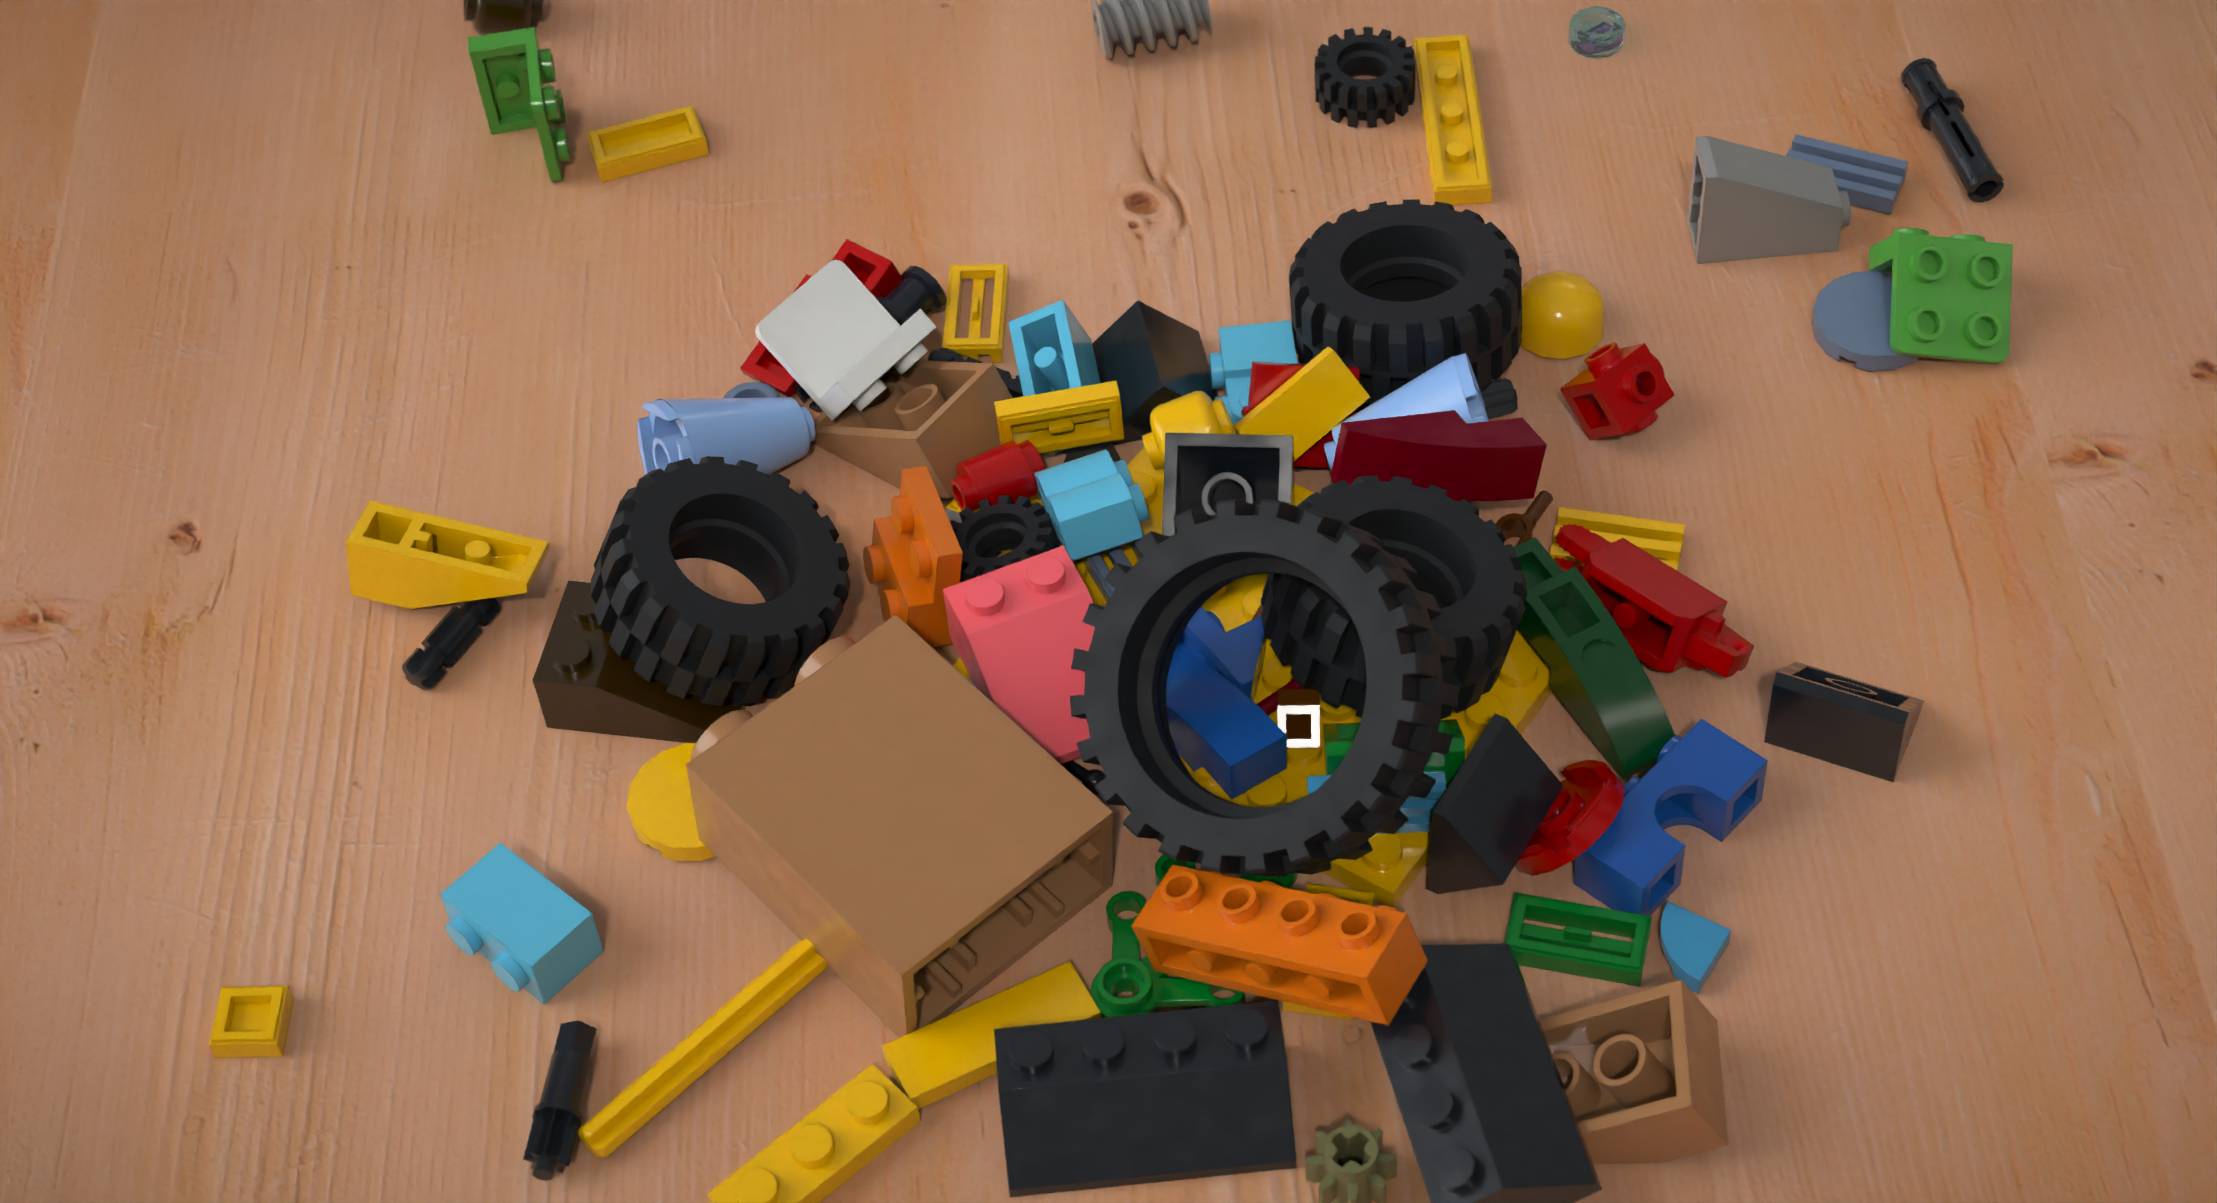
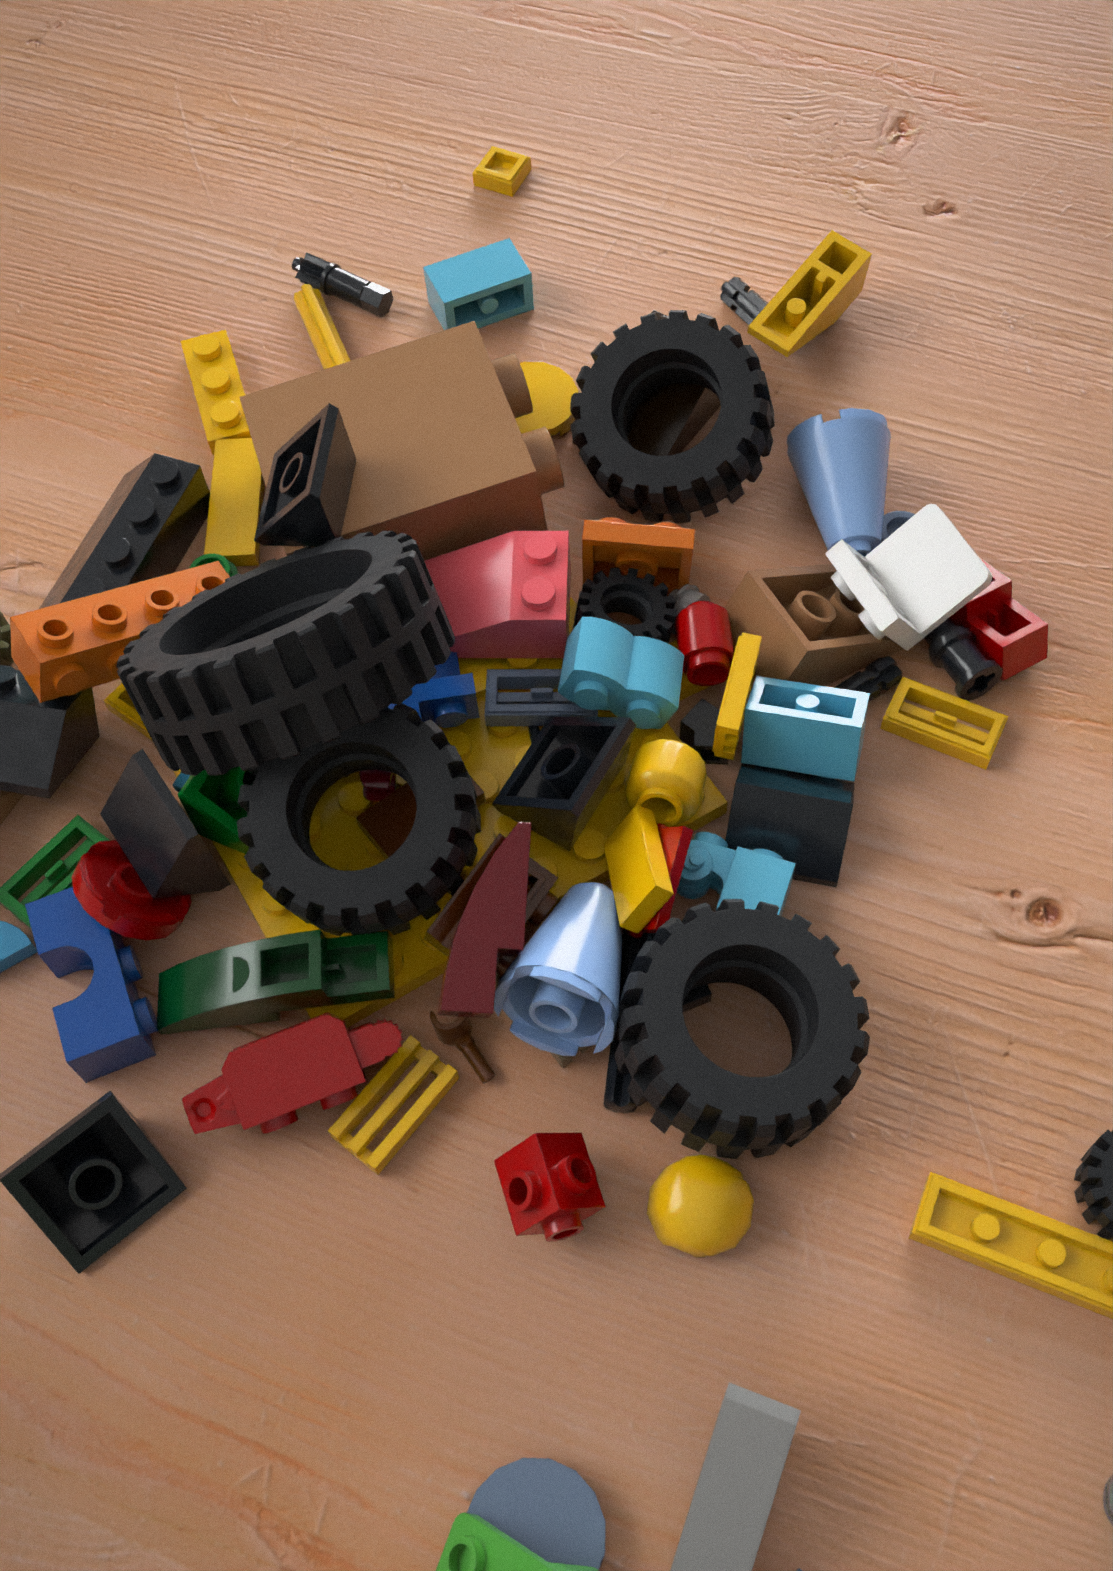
camera: 115 degrees right, 10 degrees up
(1028, 794) = (309, 485): none -> black slope

